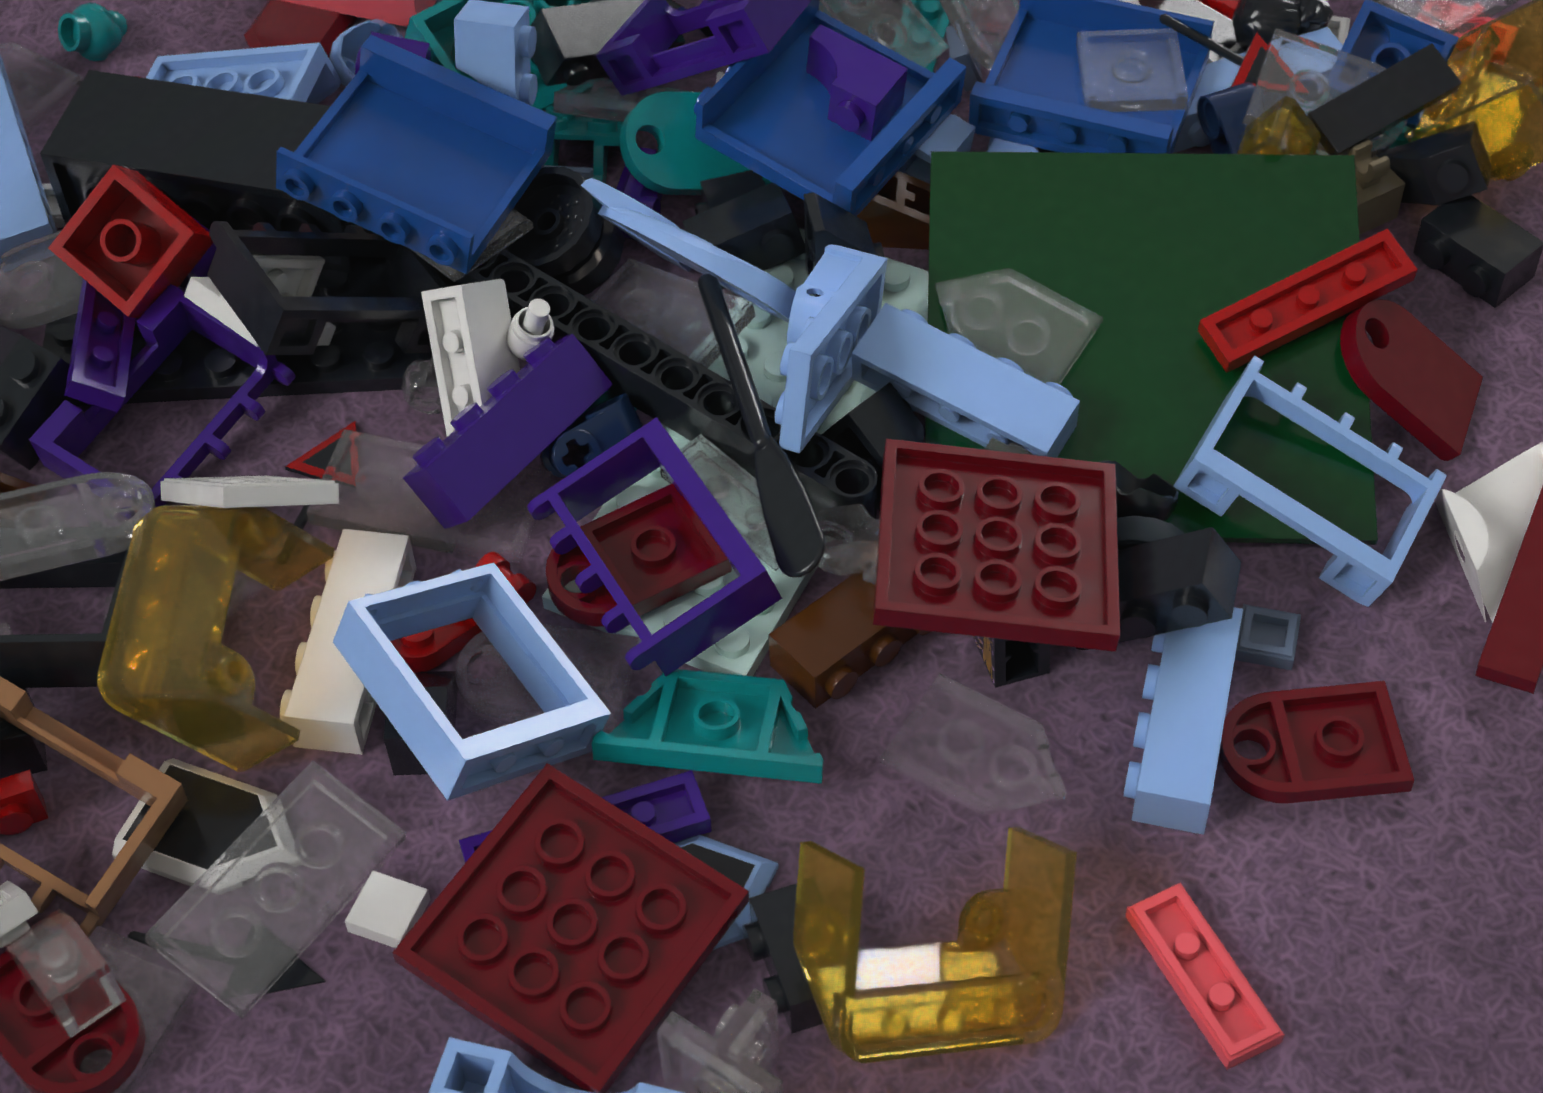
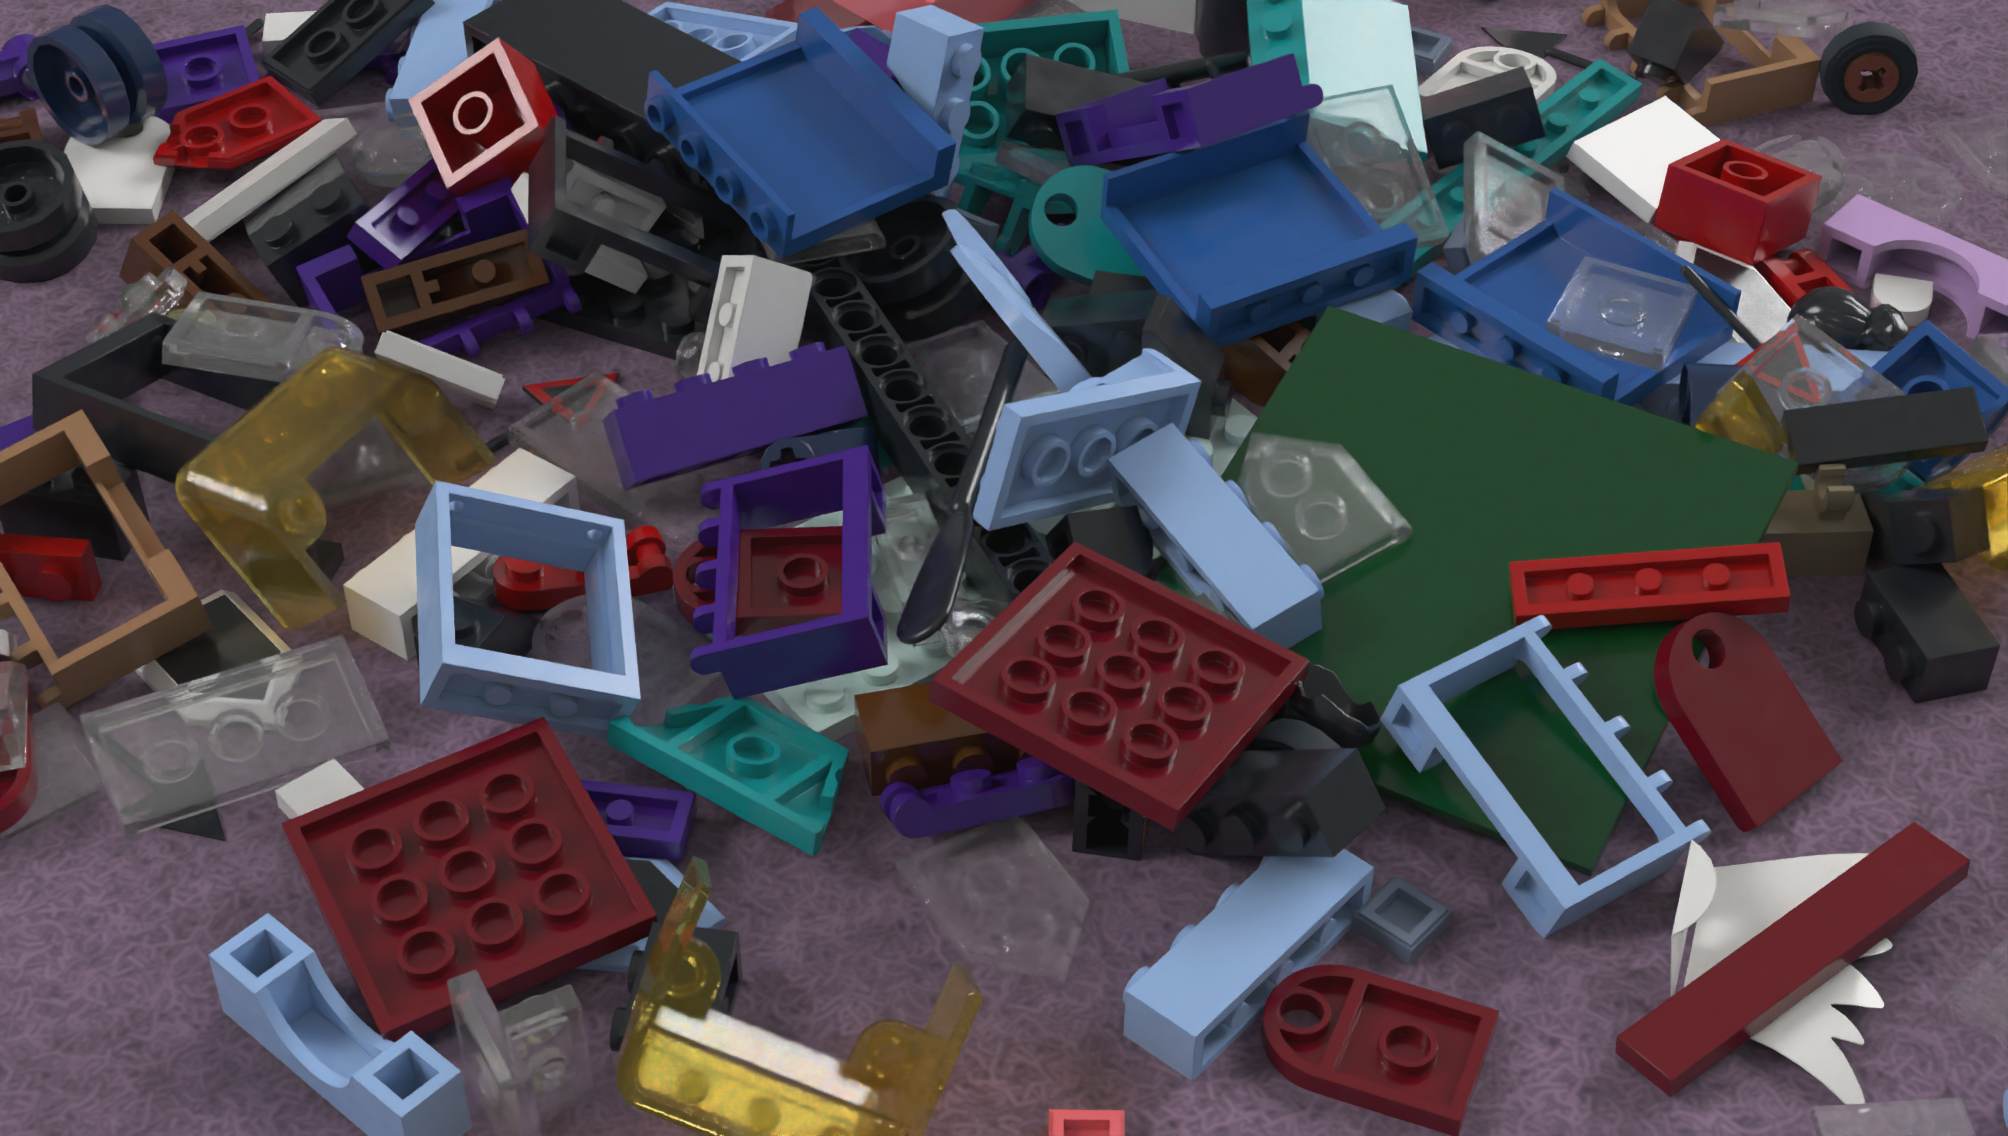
camera: 25 degrees right, 10 degrees down
(176, 401) = (452, 284): none -> reddish brown slope
(530, 327) = (814, 326): white cylinder -> none
(860, 82) = (1292, 212): dark purple arch -> none
(903, 681) = (976, 798): none -> dark purple plate

